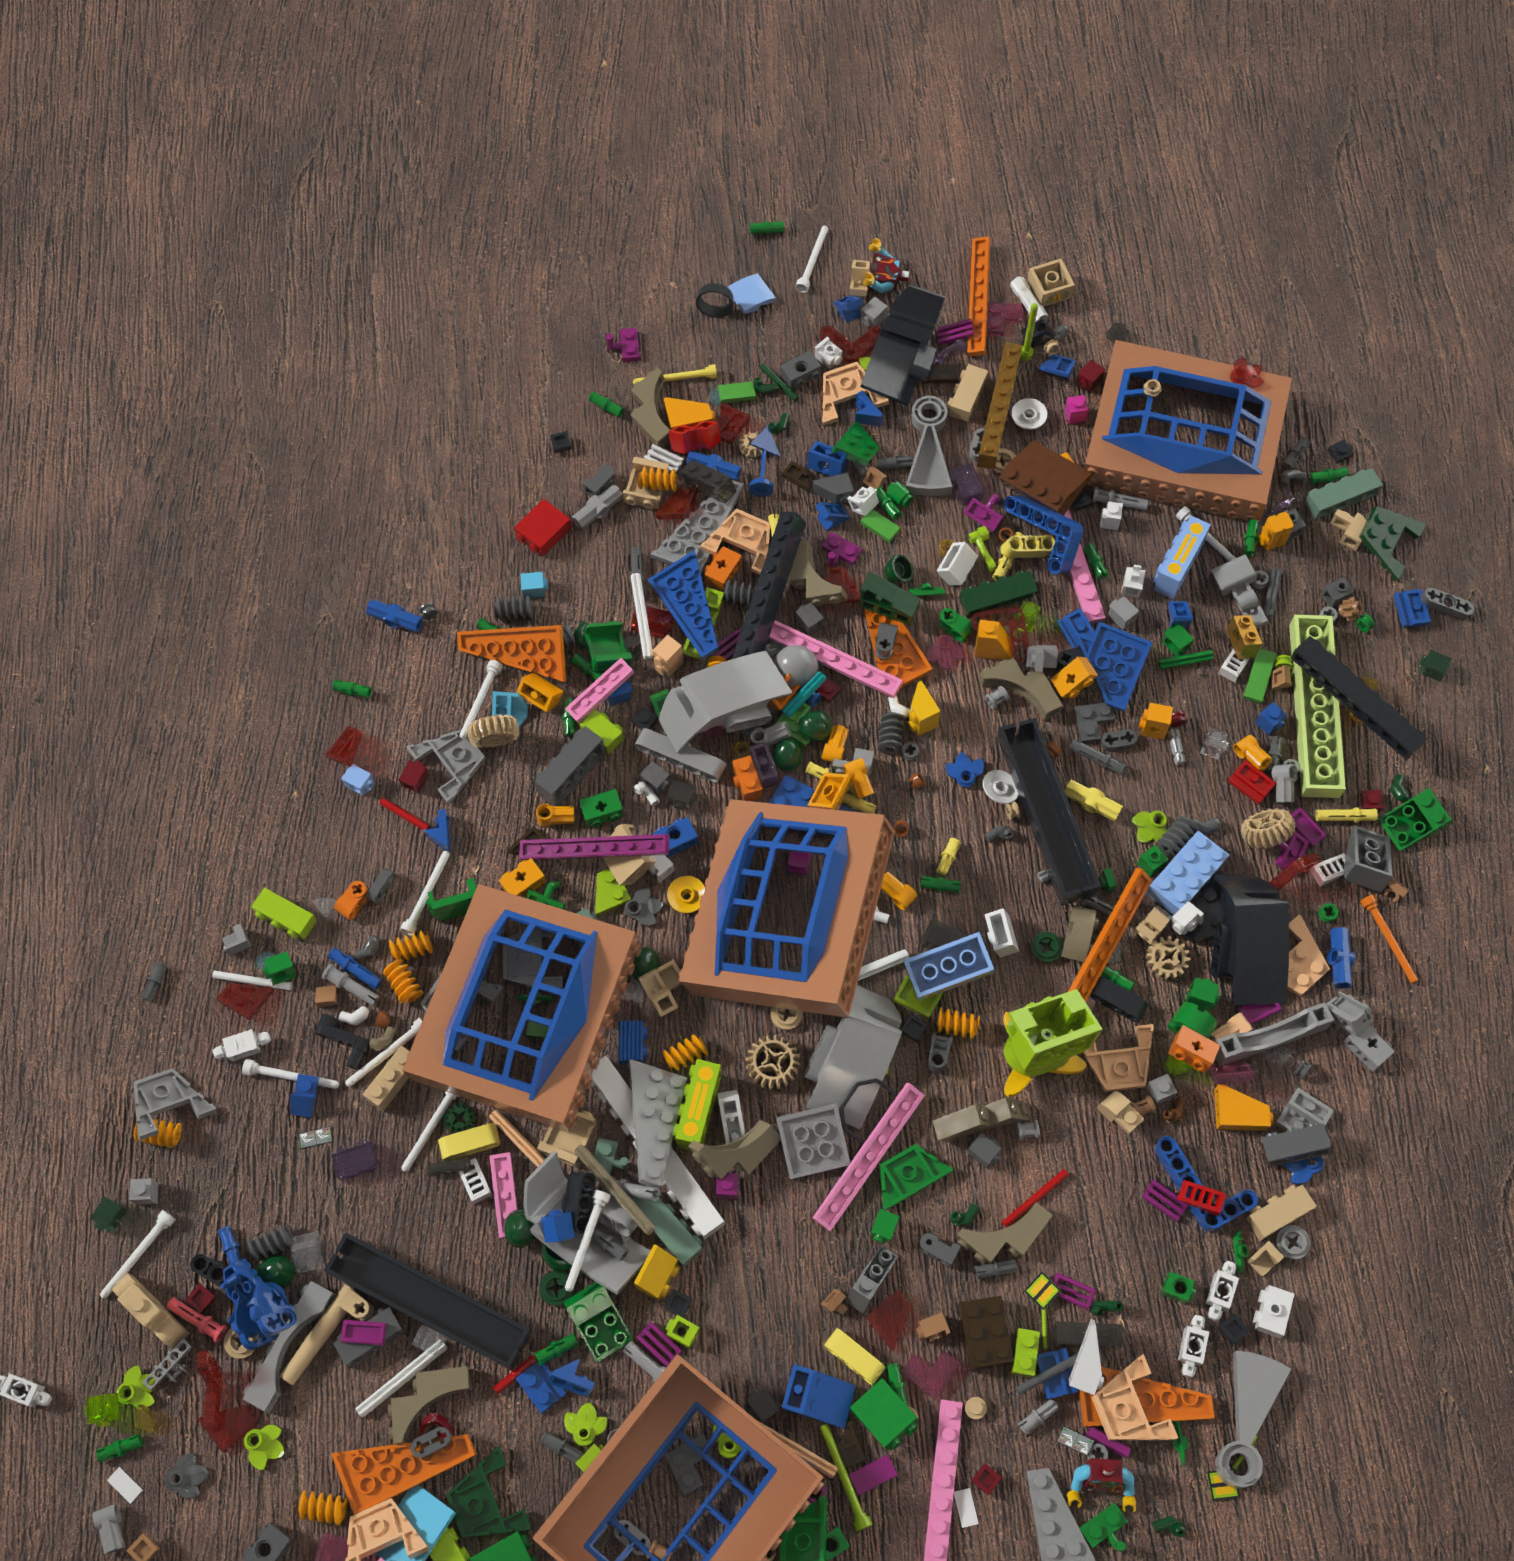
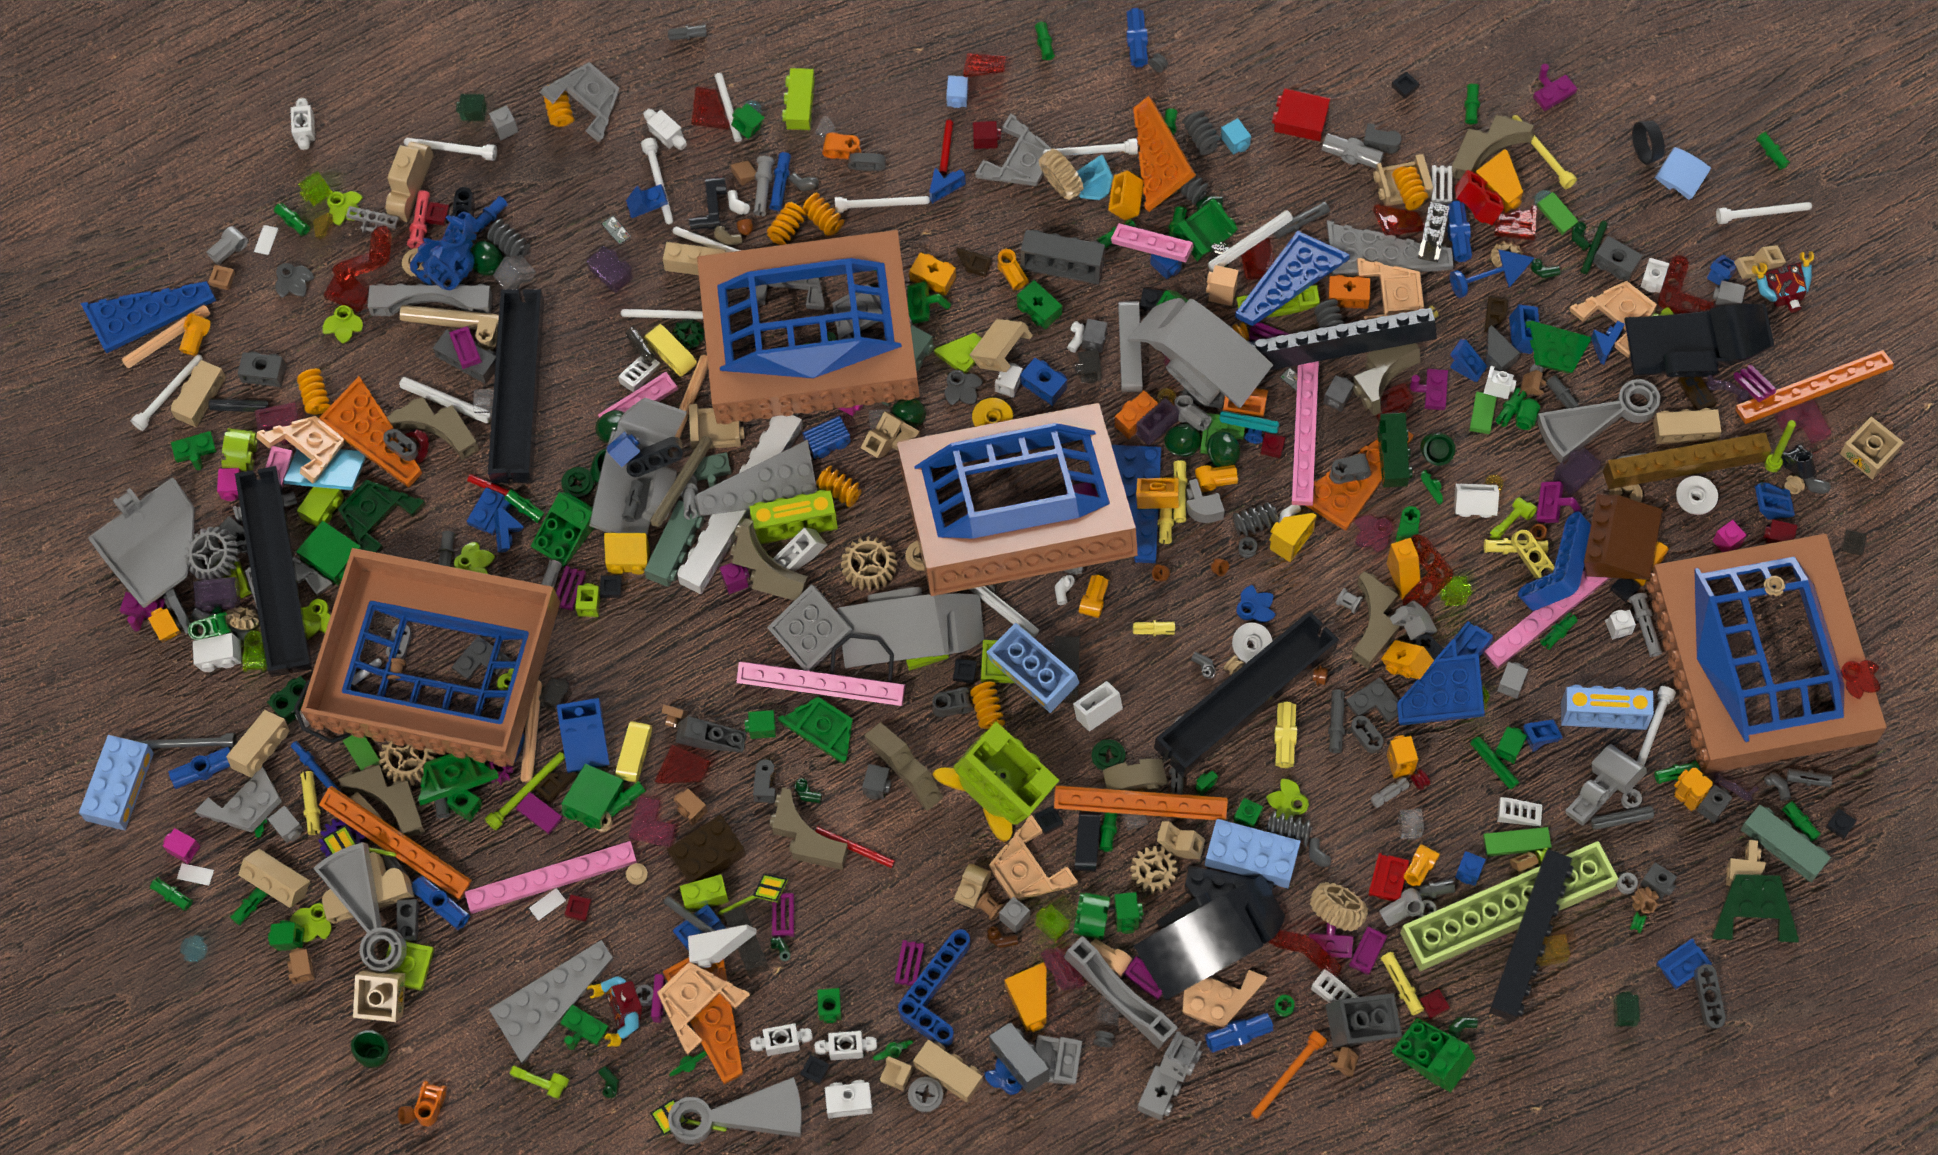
camera: 65 degrees right, 0 degrees up
(237, 941) = (756, 76): light grey panel -> none
(451, 906) = (871, 223): green panel -> none
(594, 847) = (990, 312): magenta tile -> none
(600, 1199) = (664, 472): white piece -> none
(610, 733) = (1116, 268): lime brick -> none
(798, 662) = (1279, 402): light grey piece -> none
(859, 778) = (1189, 503): light orange piece -> none
(940, 884) = (1122, 633): green pin -> none
(995, 1269) = (770, 838): dark grey axle -> none
(998, 593) = (1464, 551): dark green brick -> none
(1022, 290) = (1831, 448): white axle -> none
(1028, 1130) = (915, 812): light grey bush -> none
(1038, 1416) = (652, 929): light grey axle -> none
(1075, 1441) = (647, 971): light grey sticker -> none
(1133, 581) = (1554, 675): white brick -> none
(1187, 919) = (1199, 866): white brick -> none
(1194, 1049) = (1067, 910): orange brick -> none
(1203, 1190) = (921, 1003): red slope -> none
(1244, 637) = (1548, 805): pearl gold brick -> none

